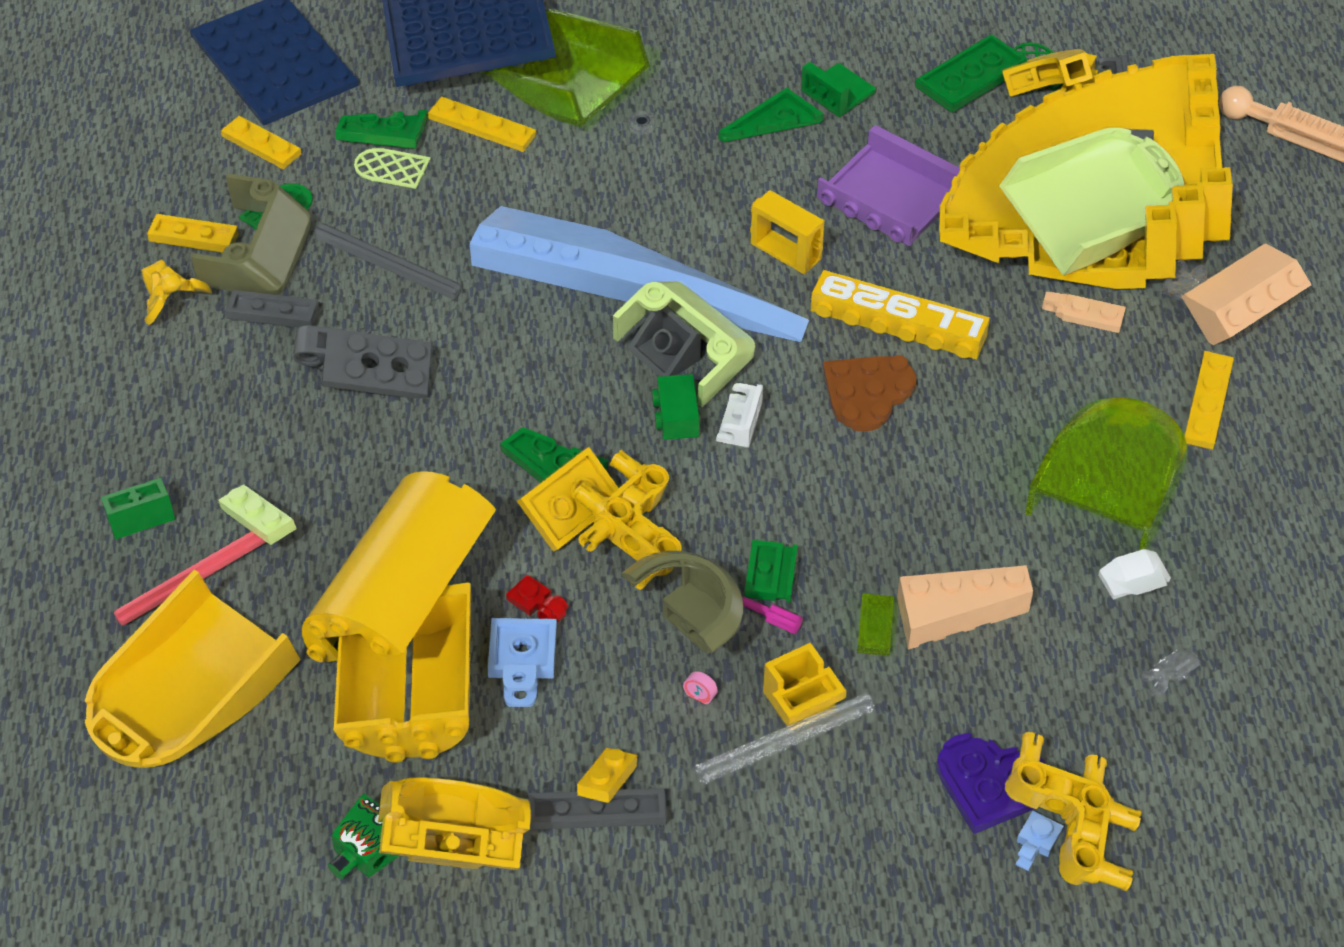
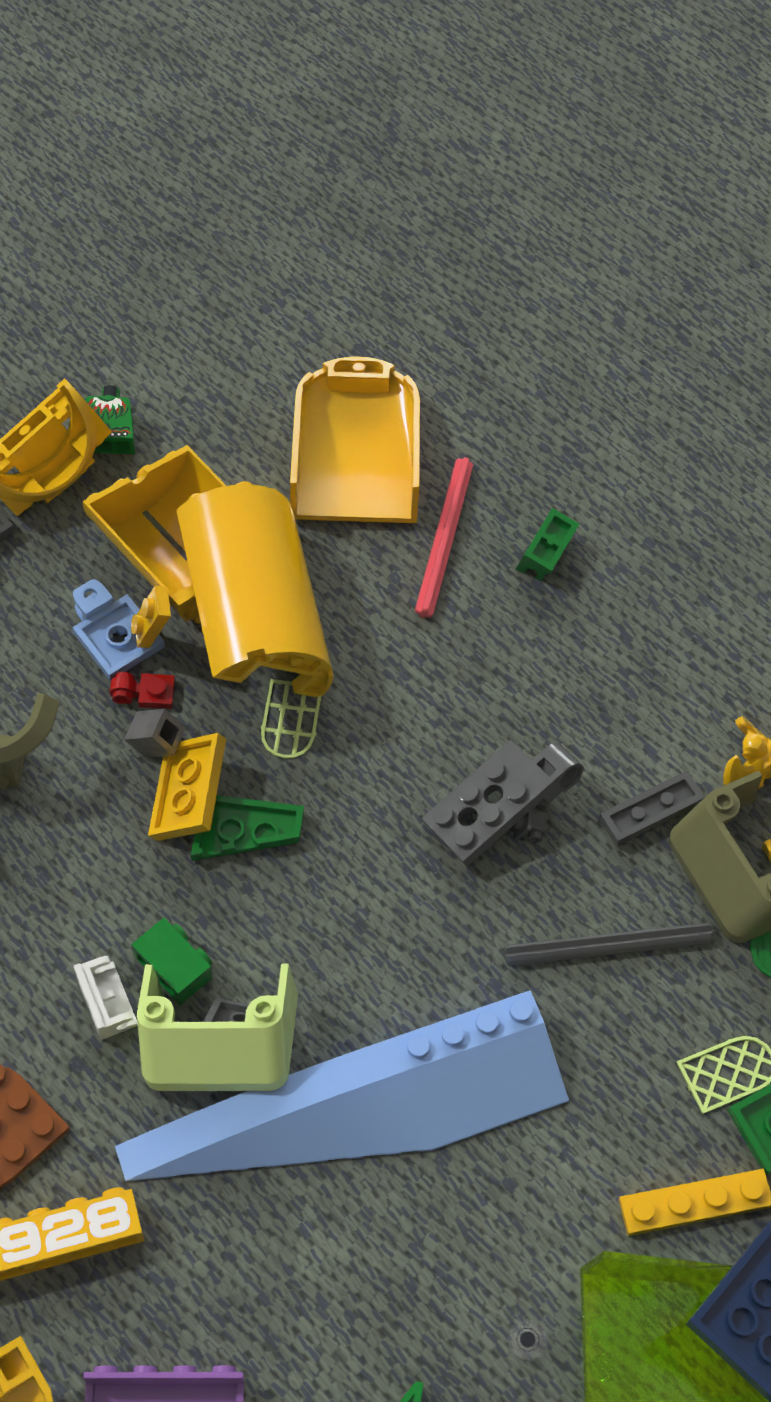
camera: 140 degrees right, 10 degrees up
(257, 514) = (444, 600): yellowish green plate -> none
(492, 607) = (151, 617): none -> yellow plate
(561, 550) = (155, 733): none -> flat silver brick
(621, 514) = (128, 811): yellow pin -> none
(794, 219) = (220, 1257): yellow window -> none

